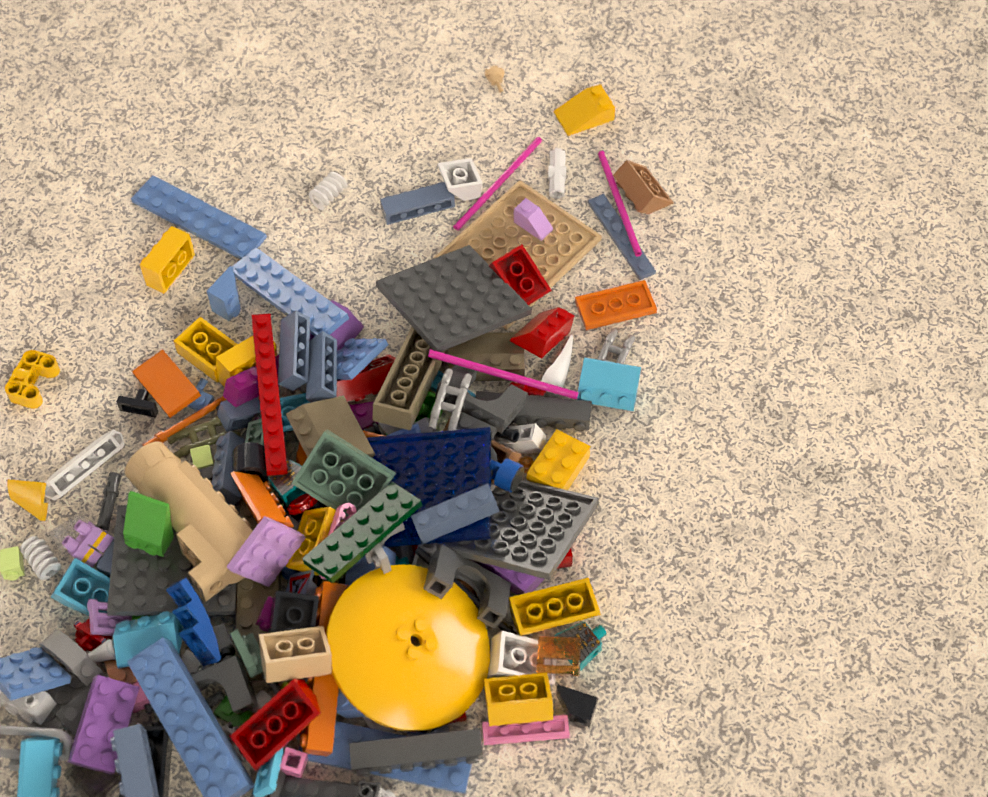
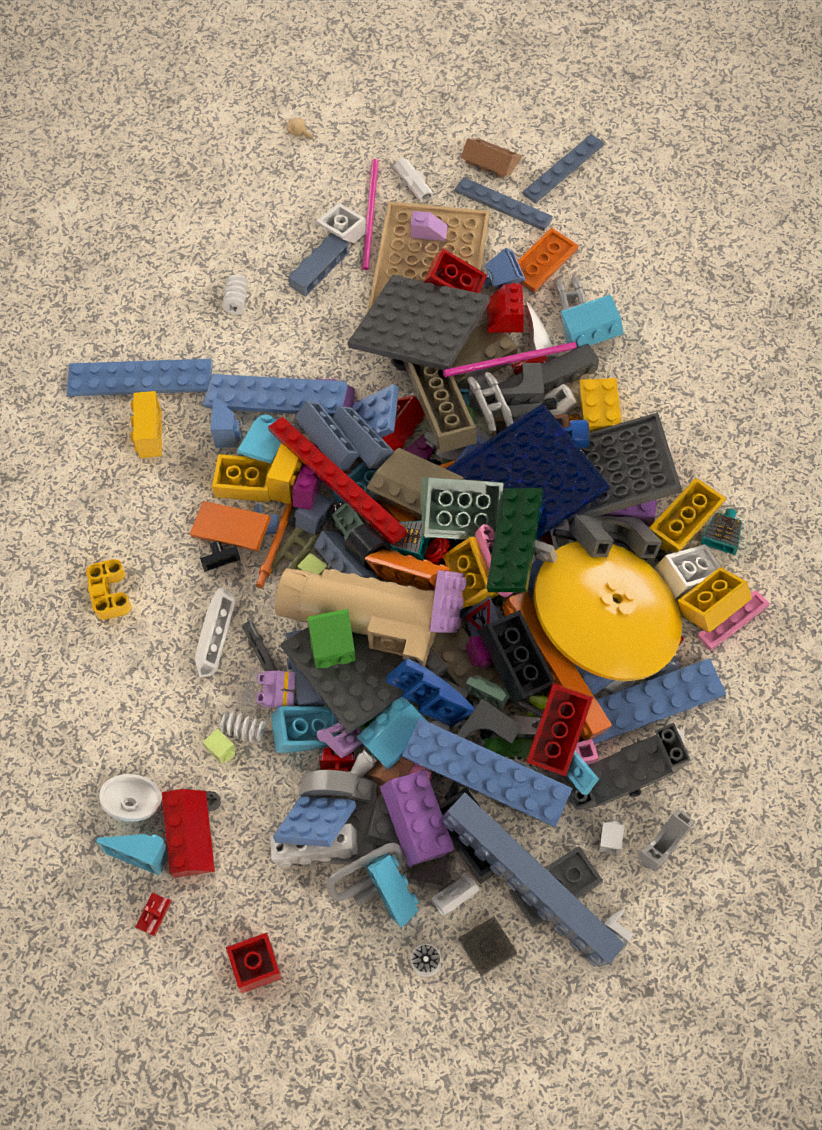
camera: 30 degrees left, 5 degrees up
(29, 496) = (190, 684): yellow slope -> none
(238, 325) = (259, 441): none -> medium azure slope
(295, 654) = (537, 665): tan slope -> none
(416, 751) = (673, 684): dark grey brick -> none
(455, 513) = (573, 483): sand blue brick -> none
(559, 649) = (717, 543): clear orange plate -> none
(569, 293) = (503, 270): none -> medium blue torso
(577, 705) = (760, 578): black slope -> none
(586, 110) = (396, 117): yellow slope -> none
(620, 205) = (483, 177): dark pink piece -> none
(701, 233) = (563, 168): none -> sand blue plate

